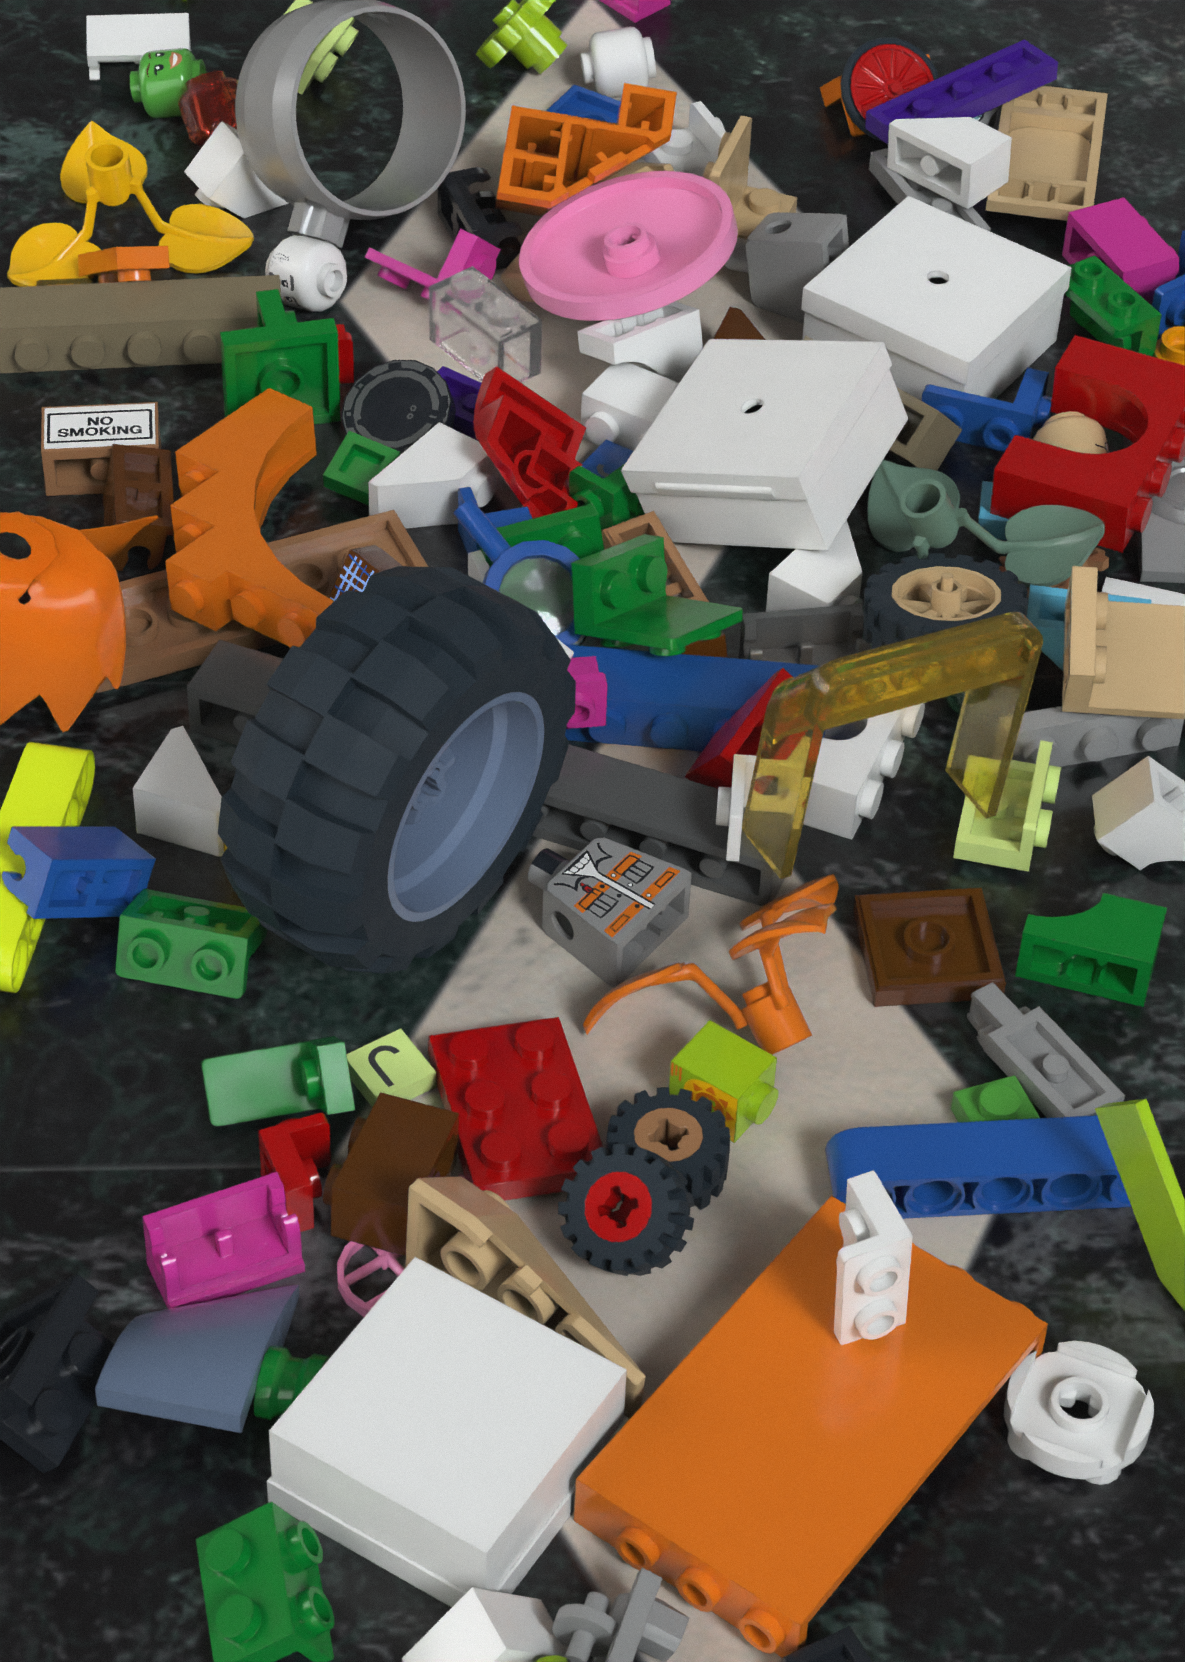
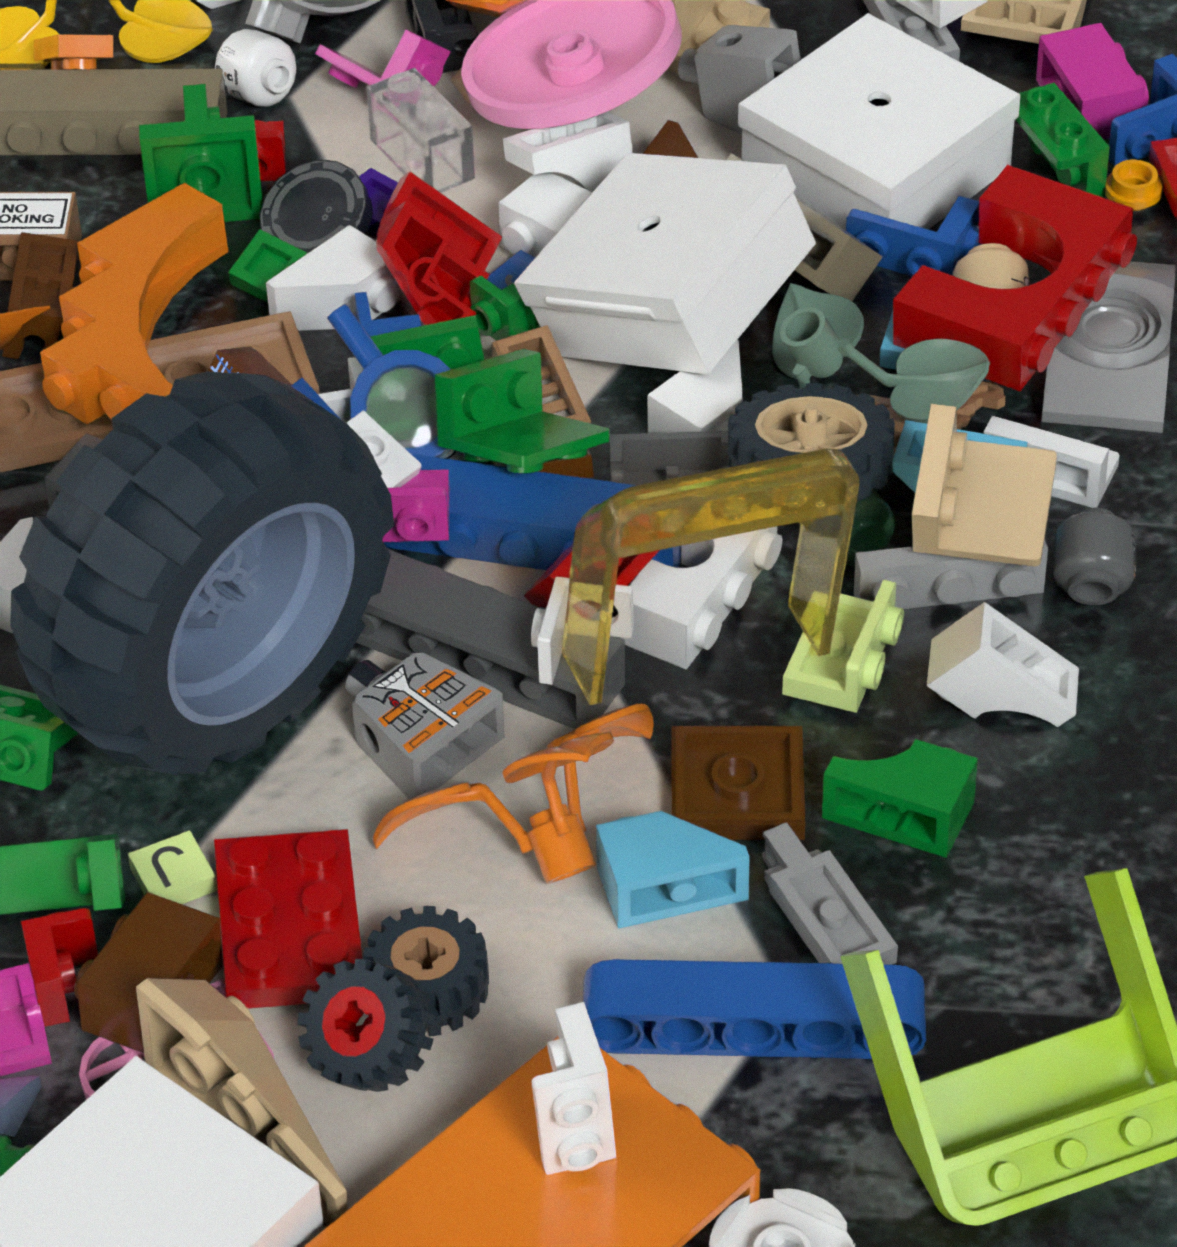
camera: 10 degrees right, 0 degrees up
(729, 1074) = (501, 901): lime brick -> none
(882, 1034) = (667, 868): none -> medium azure slope
(993, 1101) = (766, 943): bright green plate -> none

